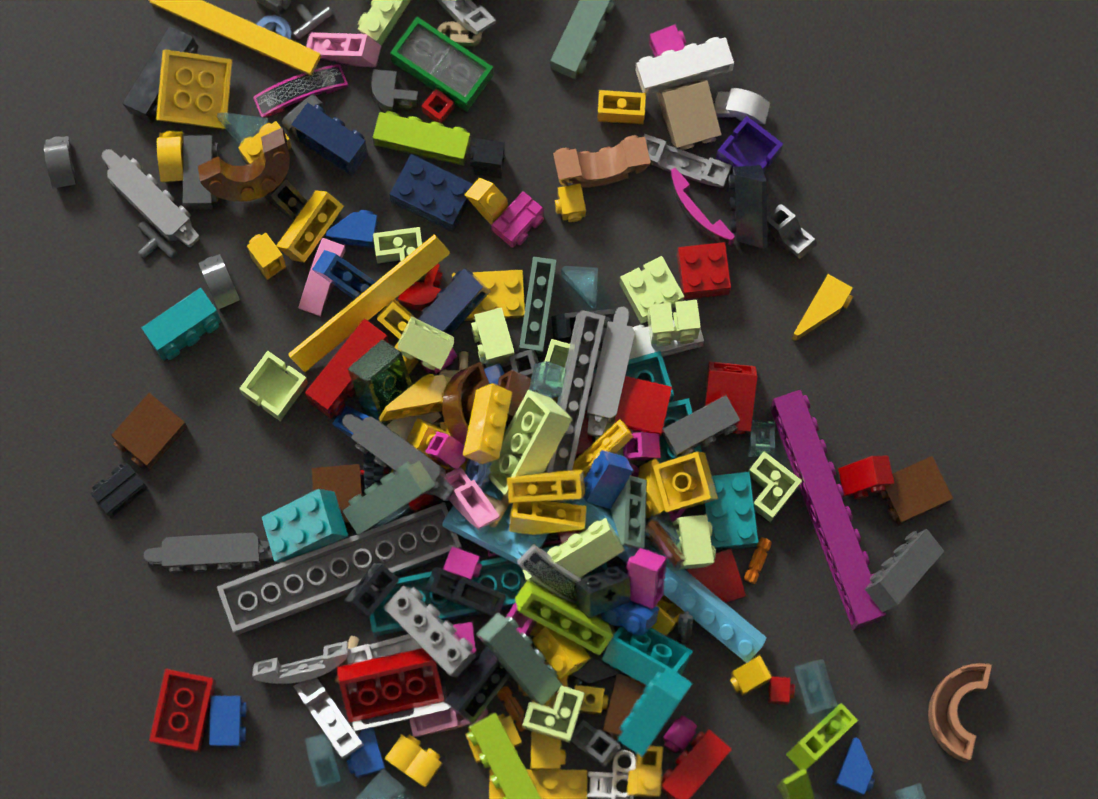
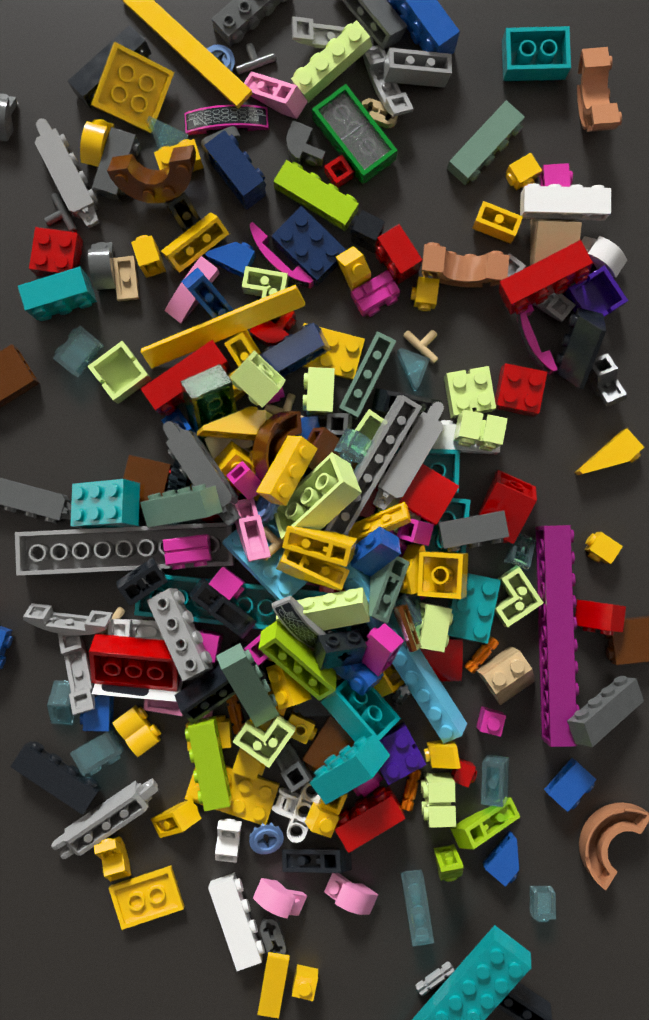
camera: 20 degrees right, 10 degrees up
(163, 283) = (54, 251): none -> red brick
(220, 378) = (77, 351): none -> clear light blue brick
(247, 287) = (126, 278): none -> tan plate
(409, 544) = (187, 550): none -> dark pink brick
(428, 228) = (297, 276): none -> dark pink slope
(528, 172) = (398, 254): none -> red brick
(585, 257) = (422, 345): none -> tan piece
(631, 47) = (523, 172): none -> yellow brick
(689, 148) = (545, 278): none -> red brick
(705, 694) = (403, 753): none -> dark purple piece
(730, 727) = (411, 790): none -> orange axle
(759, 712) = (438, 793): none -> yellowish green piece
(790, 626) = (491, 721): none -> dark pink brick
(791, 571) = (506, 674): none -> tan slope
(846, 406) = (602, 548): none -> yellow brick
(897, 665) = (570, 785): none -> blue brick

